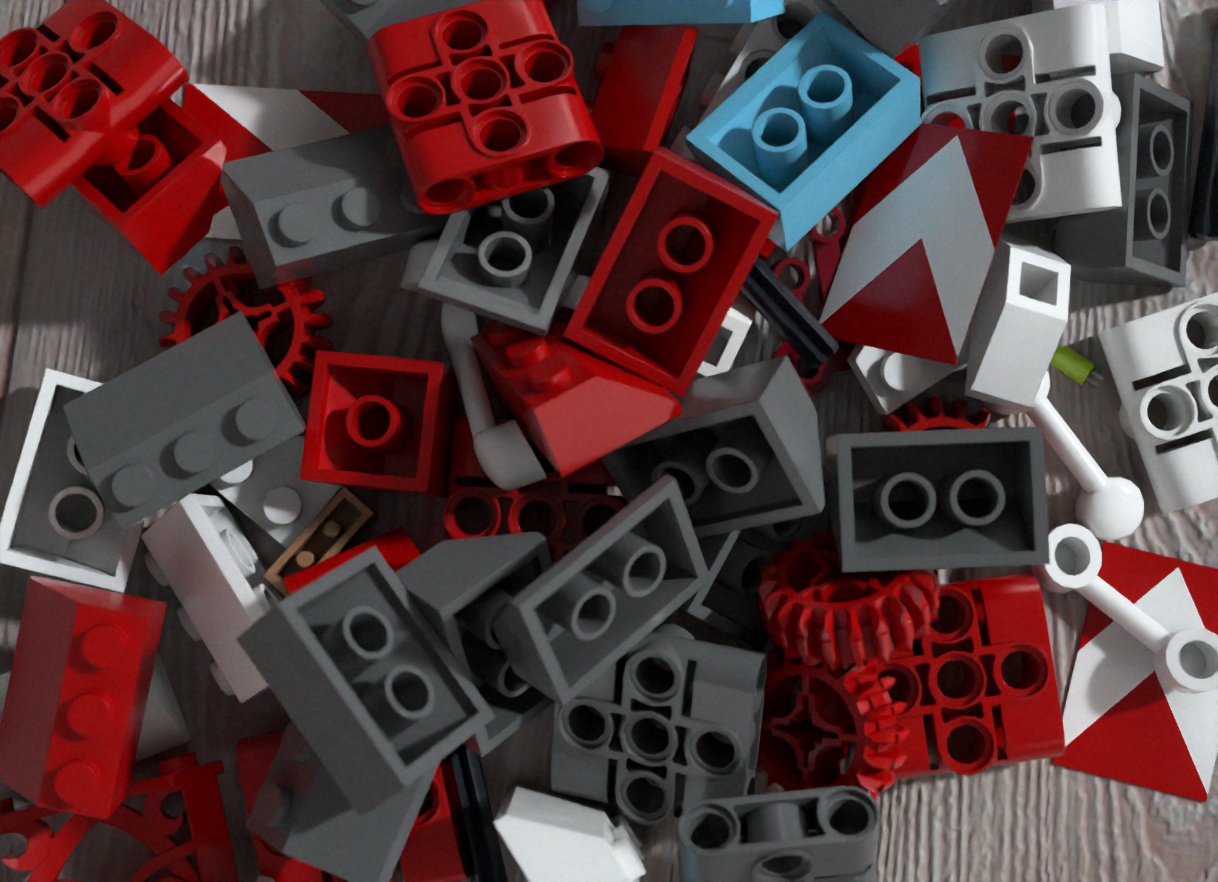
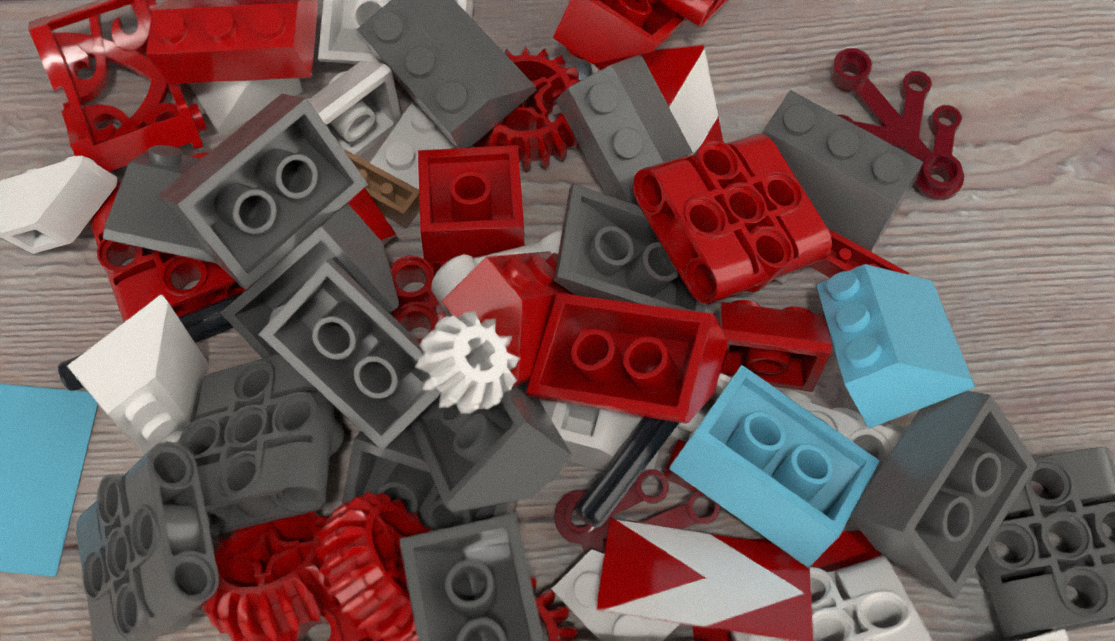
camera: 80 degrees right, 20 degrees down
(667, 455) = (467, 362): none -> white gear

